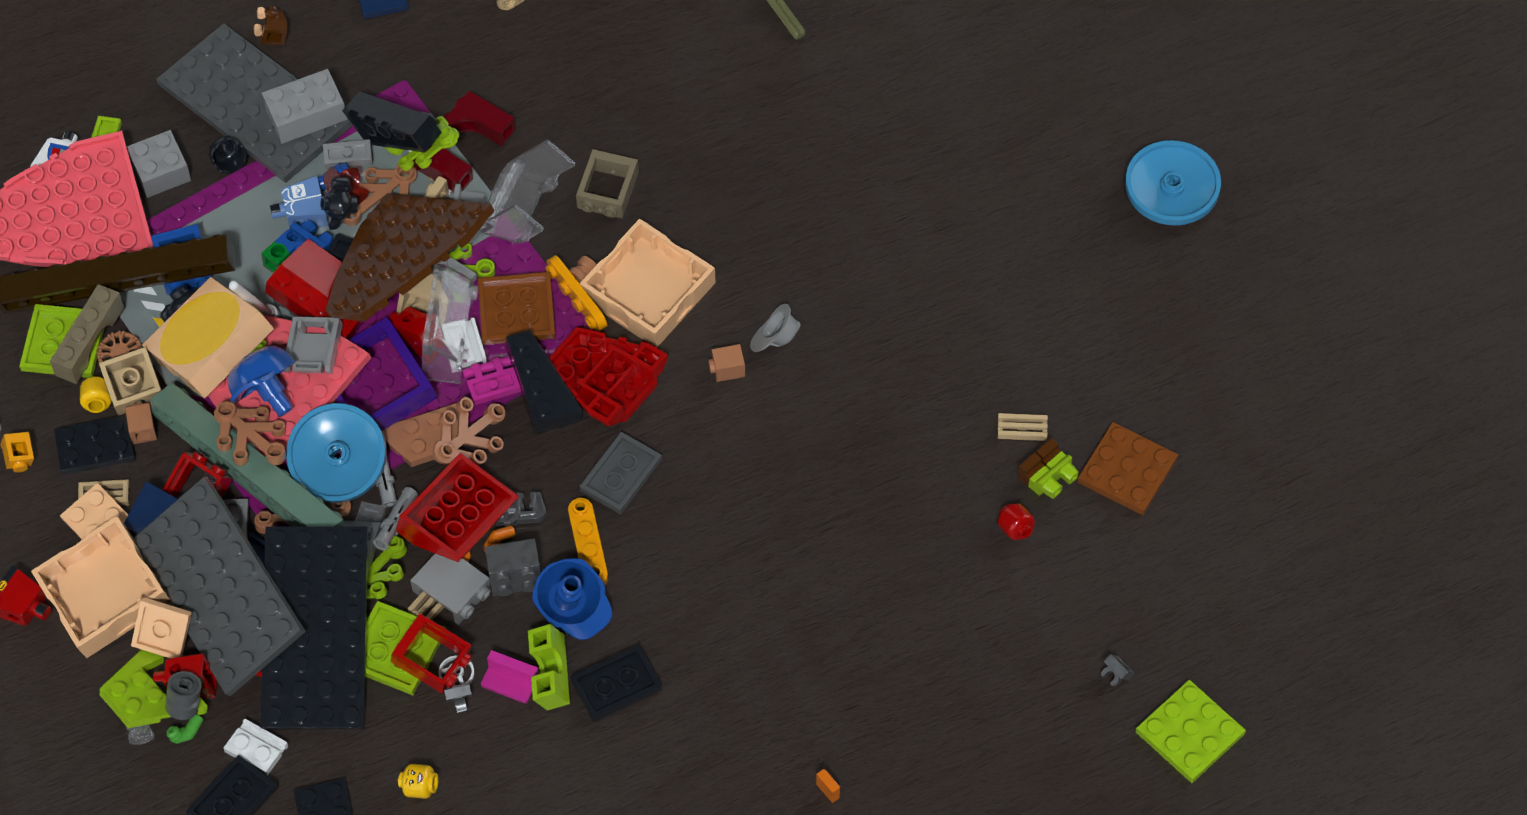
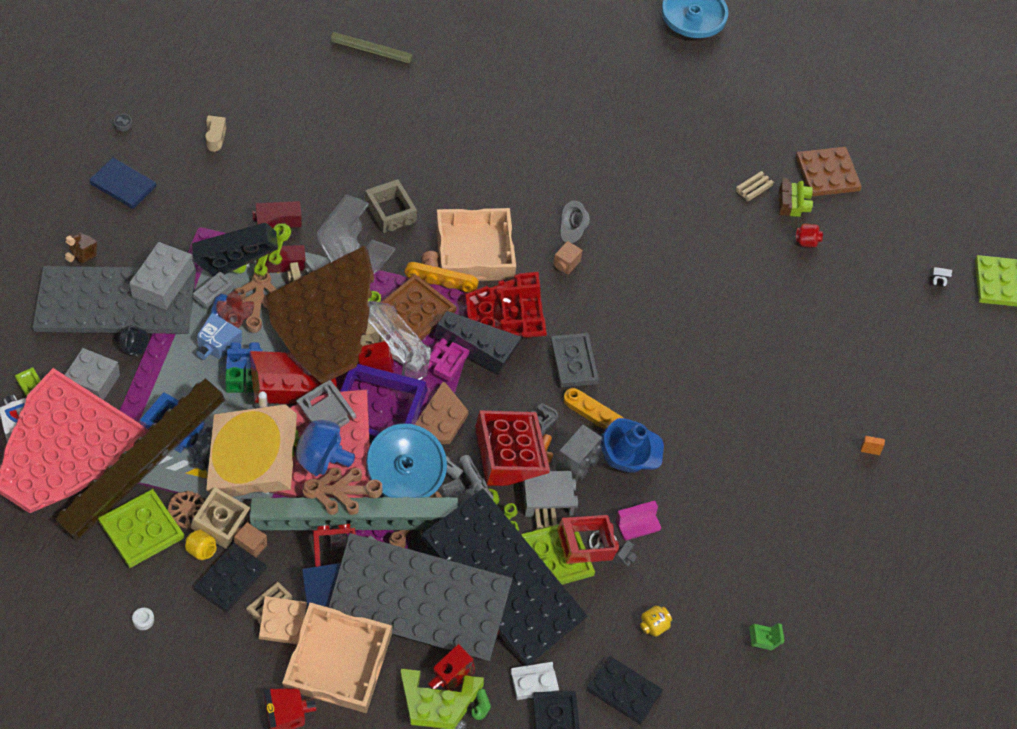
camera: 50 degrees left, 5 degrees down
(17, 444) = (185, 618): light orange brick -> none
(74, 351) = (161, 509): dark tan arch -> none
(161, 628) = (409, 651): light nougat plate -> none
(183, 695) = (471, 679): dark grey wheel -> none
(338, 202) = (246, 317): black piece -> none
(340, 247) = (270, 344): black plate -> none
(467, 435) = (466, 415): nougat plant -> none
(551, 686) = (653, 491): lime arch -> none
(616, 683) = (700, 478): black plate -> none

